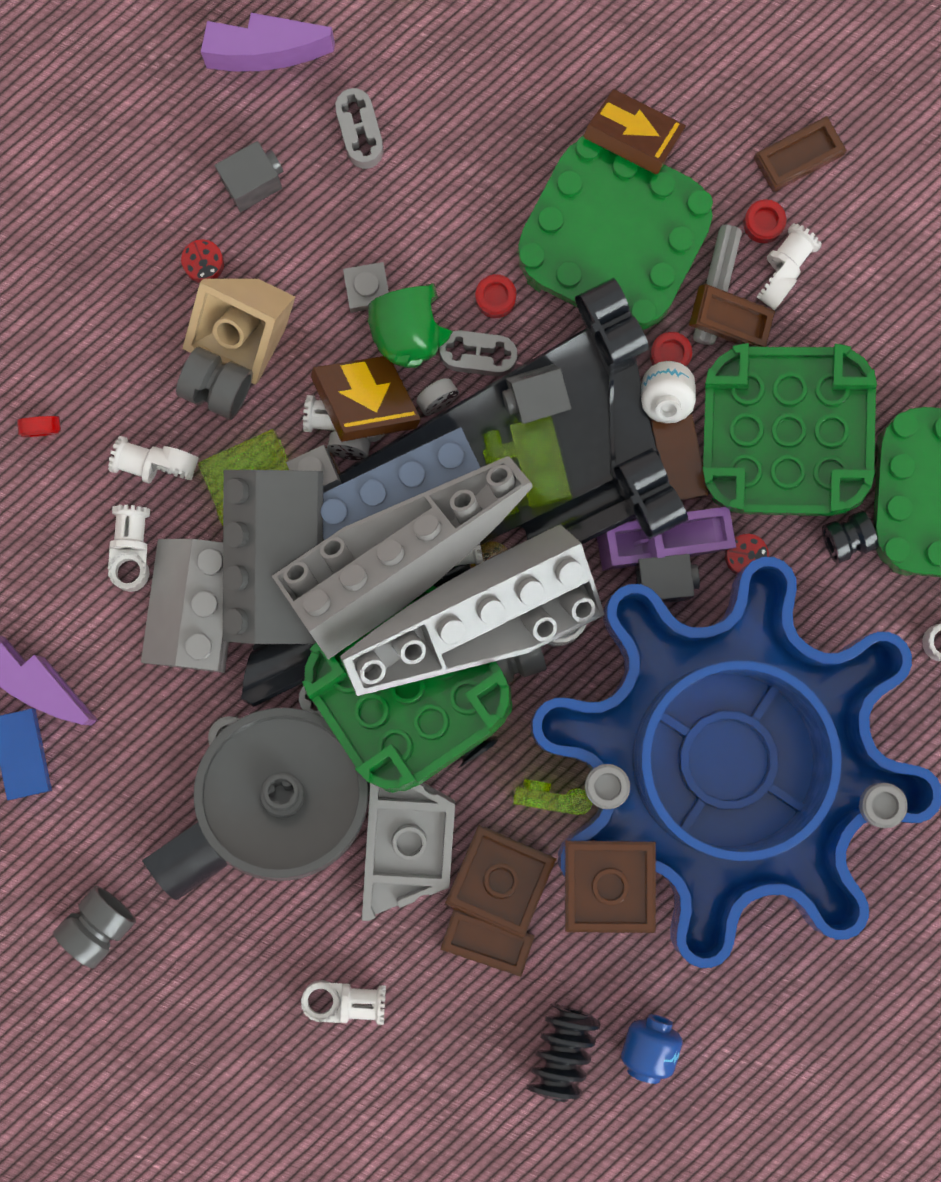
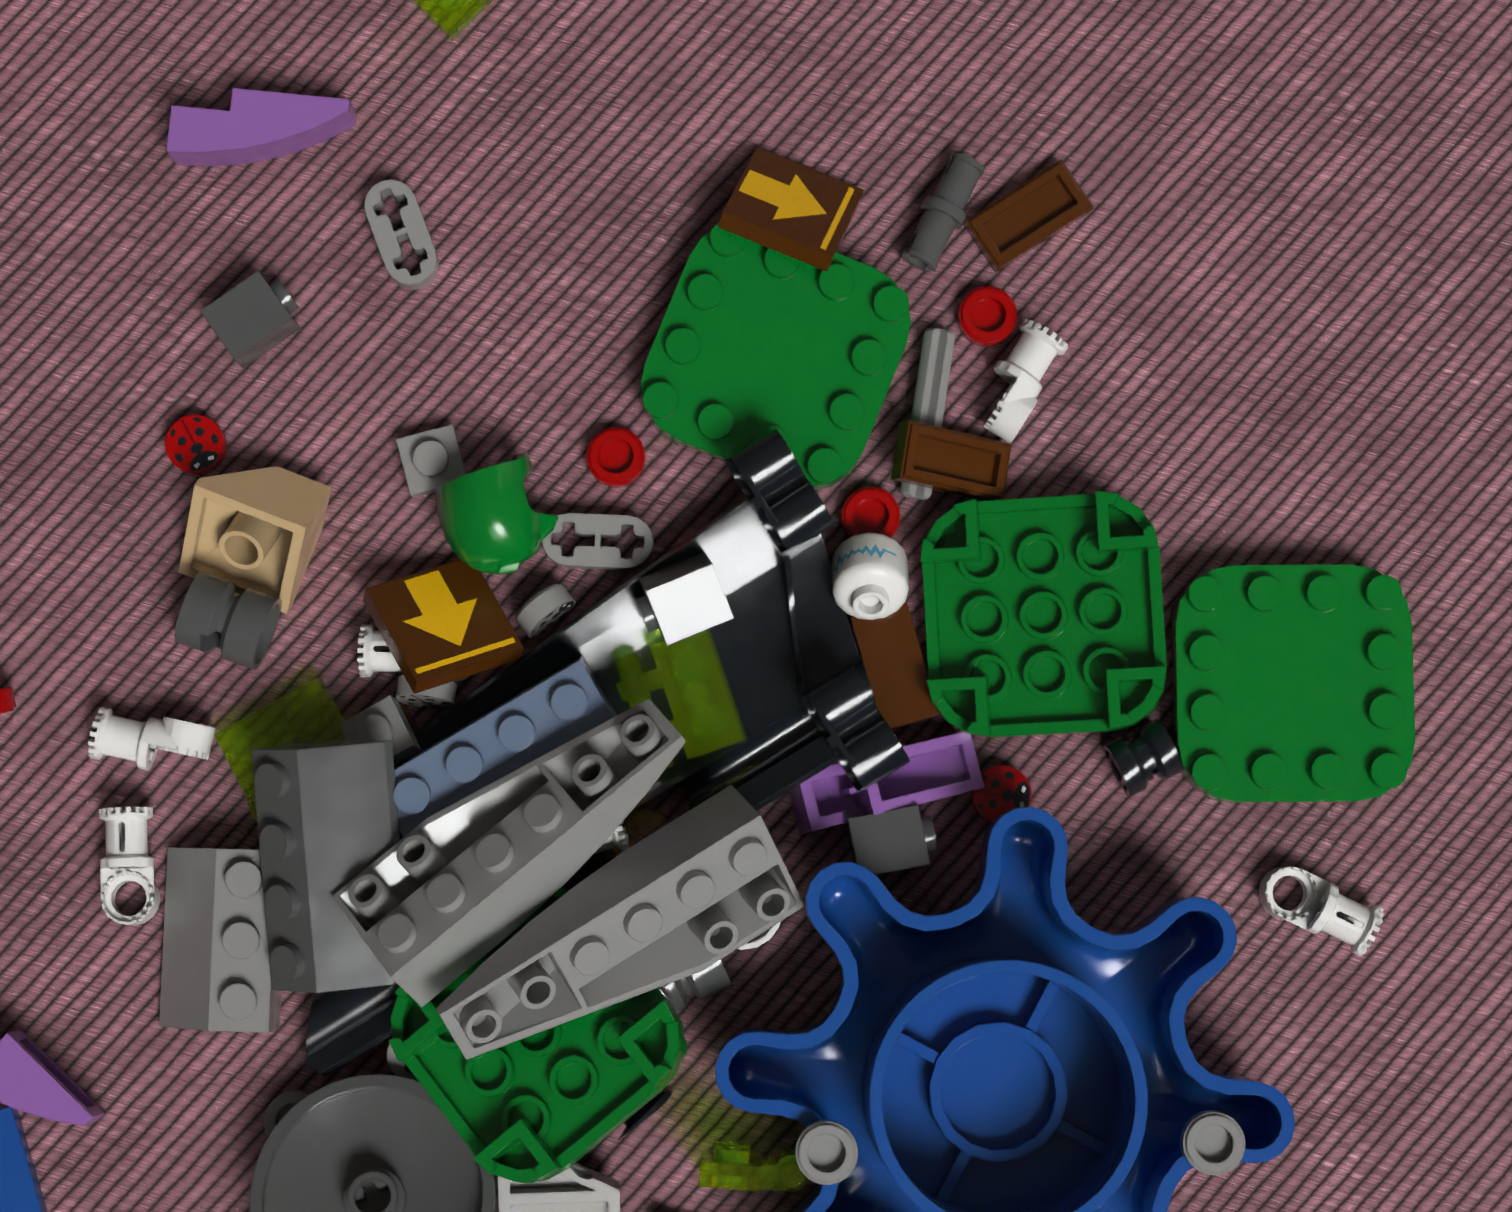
camera: 10 degrees left, 0 degrees up
(740, 145) = (943, 212): none -> dark grey pin

